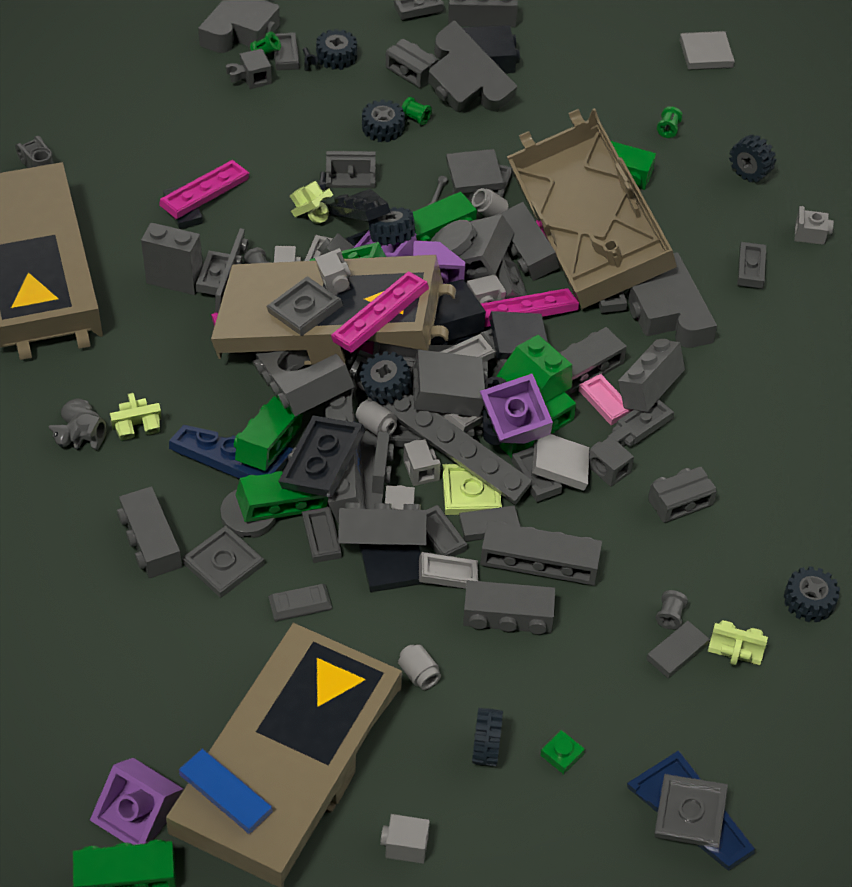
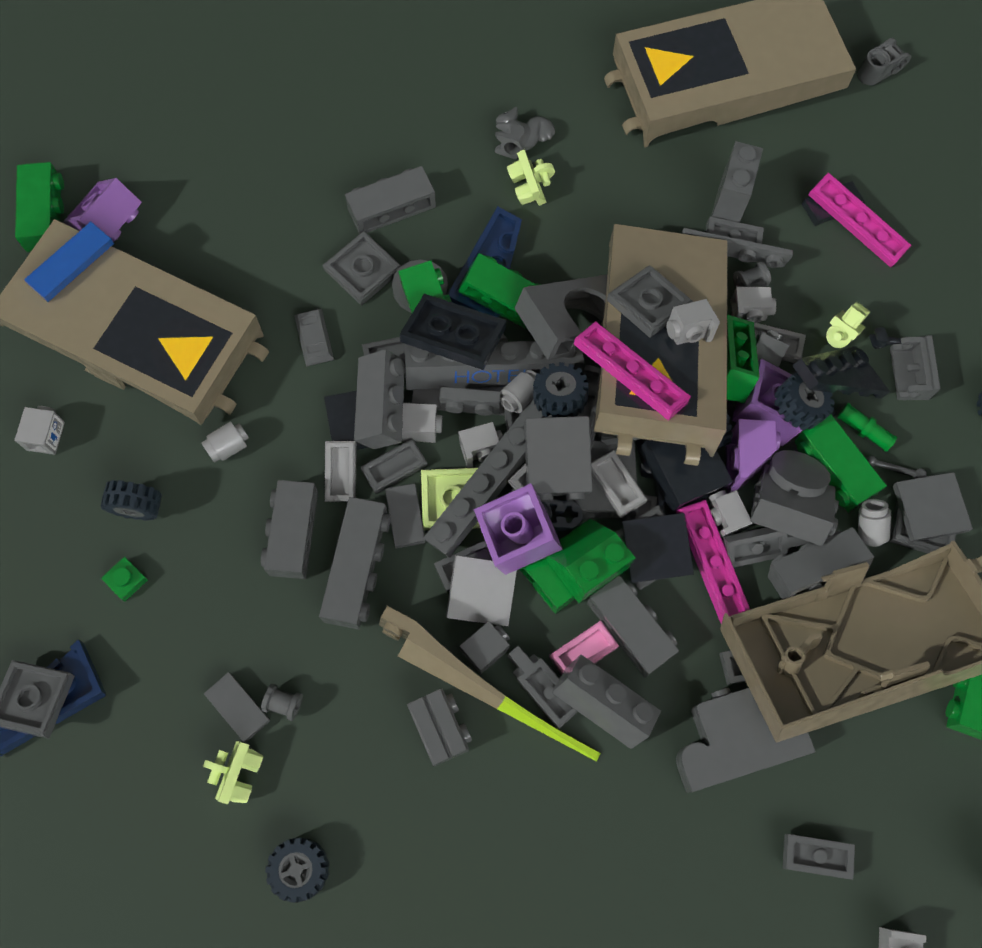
camera: 90 degrees right, 20 degrees up
(409, 199) = (867, 427): none -> green pin
(621, 490) = (429, 655): none -> dark tan plate

